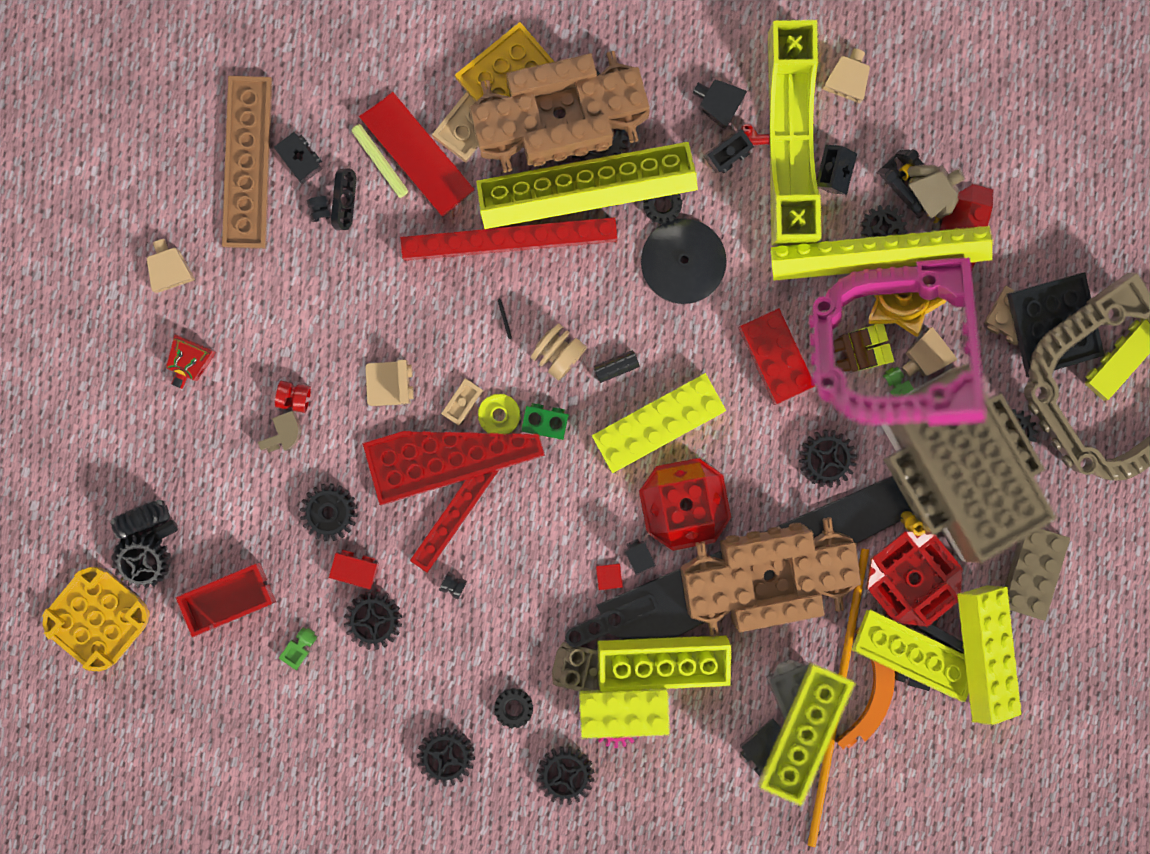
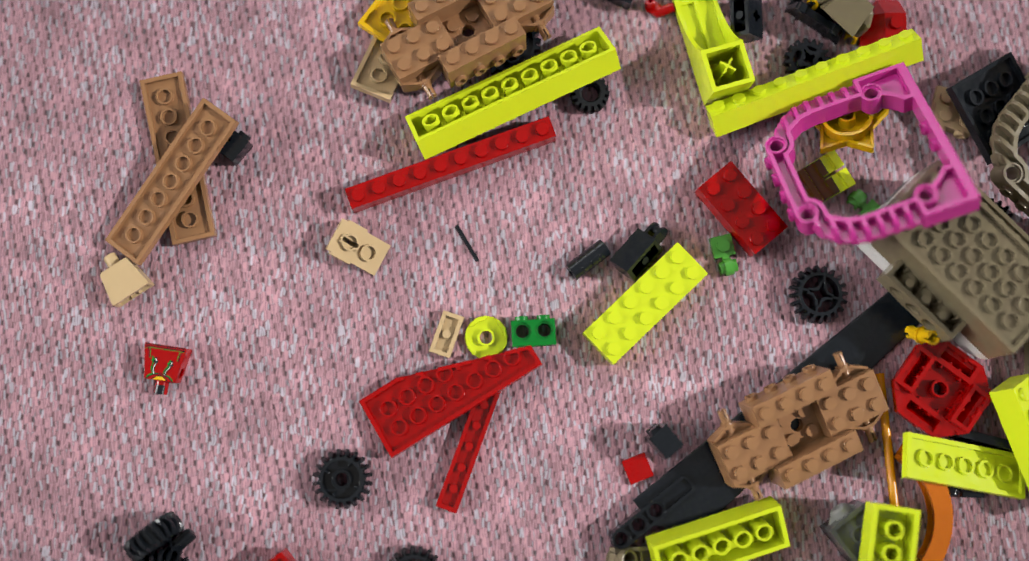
camera: 15 degrees left, 5 degrees down
(237, 185) = (172, 181): none -> medium nougat plate
(288, 433) = (282, 410): dark tan brick -> none
(292, 396) = (277, 373): red wheel -> none
(318, 208) = (258, 183): black wheel -> none
(339, 184) = (284, 155): black beam -> none
(354, 569) = (382, 530): red brick -> none
(379, 160) = (306, 123): yellowish green axle -> none
(389, 383) = (370, 335): tan bracket -> none
(402, 299) = (363, 249): none -> tan piece
(417, 154) = (341, 108): red arch -> none
(453, 585) = (486, 519): black wheel -> none
(558, 351) = (528, 259): tan wheel -> none
(662, 510) = (669, 380): red piece -> none
(668, 371) = (639, 251): none -> black brick
(679, 281) = (620, 161): black dish -> none
(728, 151) = (639, 26): black brick -> none
(749, 389) = (722, 248): none -> bright green plate
(928, 354) = (885, 169): tan torso -> none

